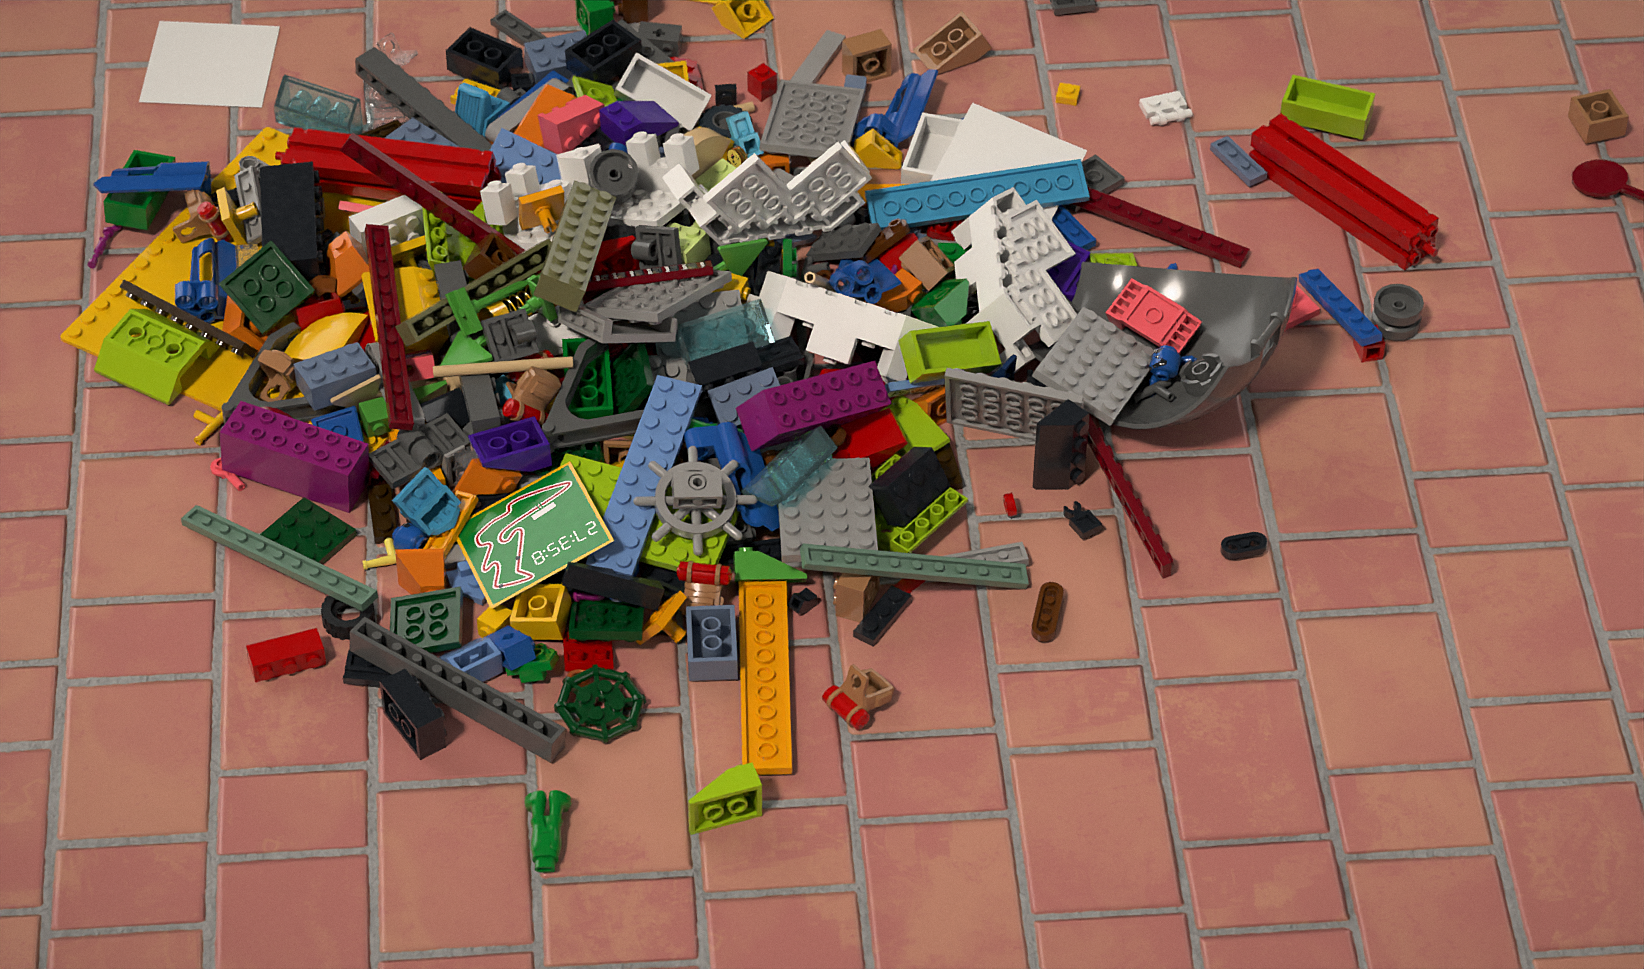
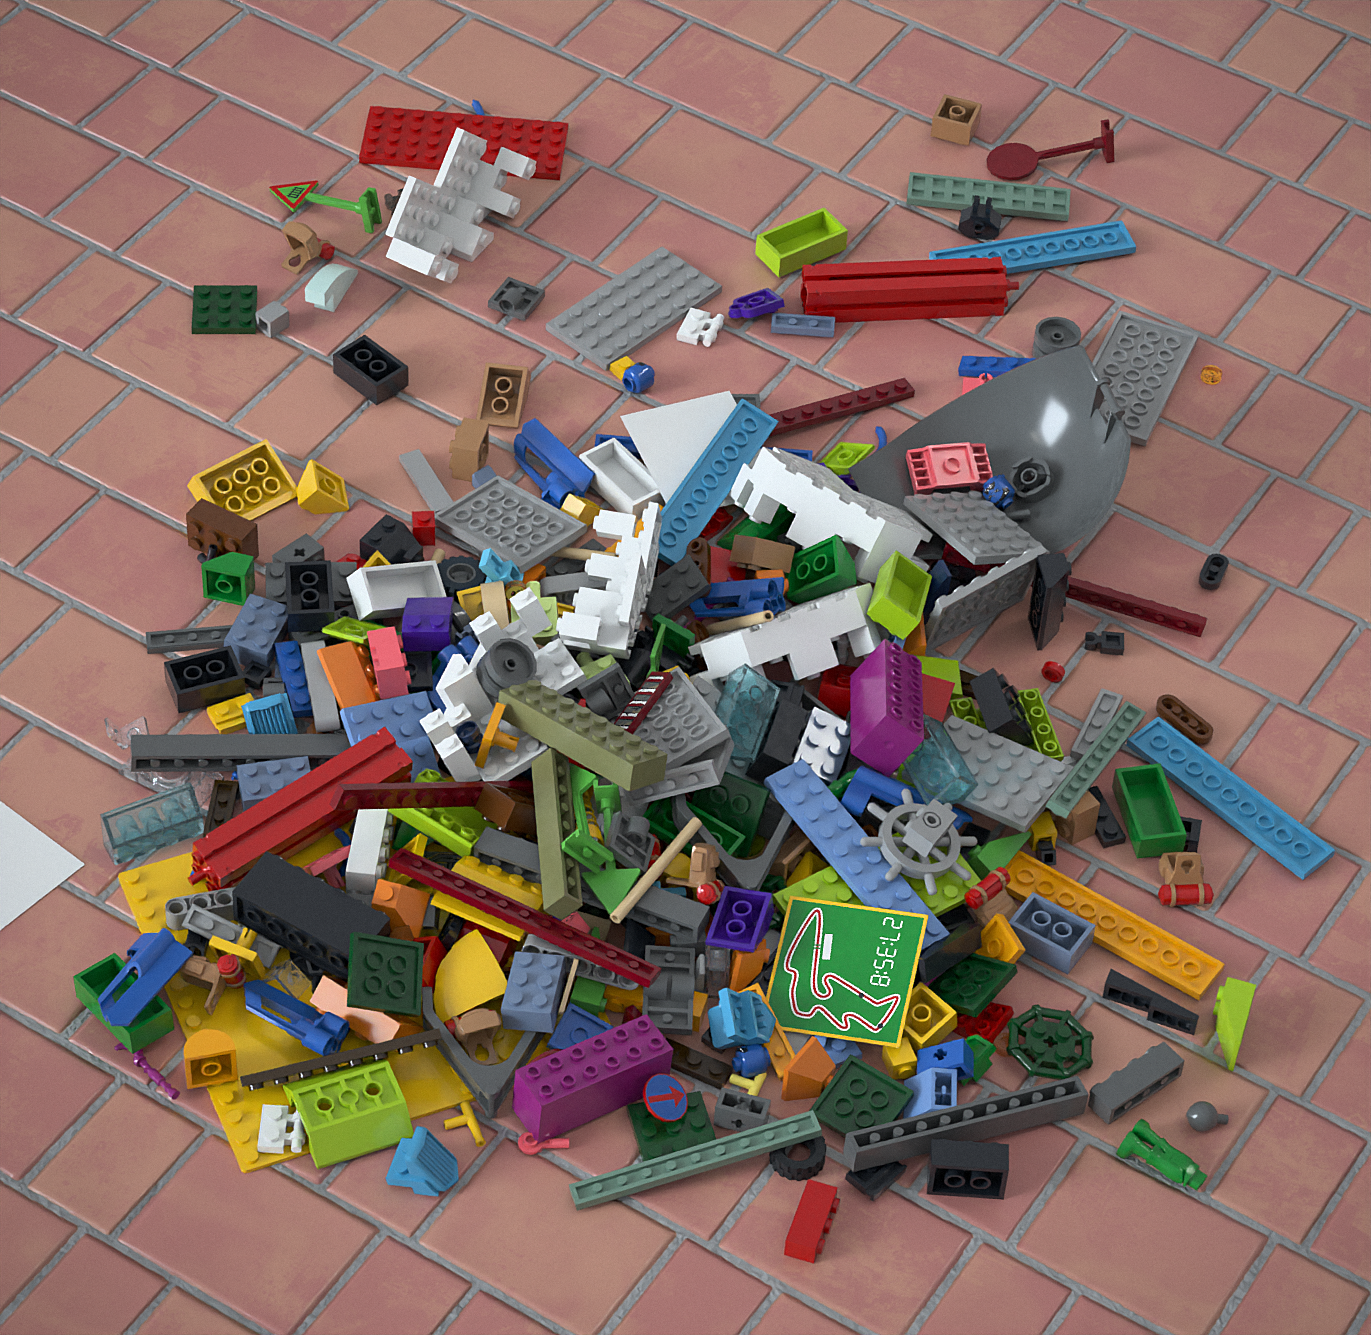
camera: 55 degrees left, 0 degrees up
(99, 329) = (273, 1130): none -> white plate
(122, 253) = (209, 1059): none -> light orange brick
(142, 418) = (423, 1164): none -> dark azure piece
(317, 506) = (665, 1097): none -> blue piece
(350, 557) = (741, 1110): none -> dark grey brick
(605, 773) = (1135, 1082): none -> dark grey brick
(614, 835) = (1204, 1116): none -> dark grey piece
(700, 745) = (1159, 1009): none -> black slope
(725, 69) = (389, 538): none -> black slope
(822, 585) = (1042, 830): none -> yellow brick
(909, 636) = (1148, 810): none -> green piece
(917, 680) = (1192, 829): none -> black bracket
(987, 685) = (1231, 798): none -> dark azure plate
(1060, 104) = (638, 377): none -> blue head
(1143, 62) = (633, 308): none -> light grey plate
(1225, 121) = (756, 304): none -> dark purple plate
(1420, 381) = (1143, 368): none -> light grey plate
(1490, 429) = (1211, 374): none -> clear orange tile
(1492, 191) = (980, 219): none -> black hinge
(1511, 250) = (1050, 248): none -> dark azure plate
(1535, 186) = (1007, 197): none -> sand green plate

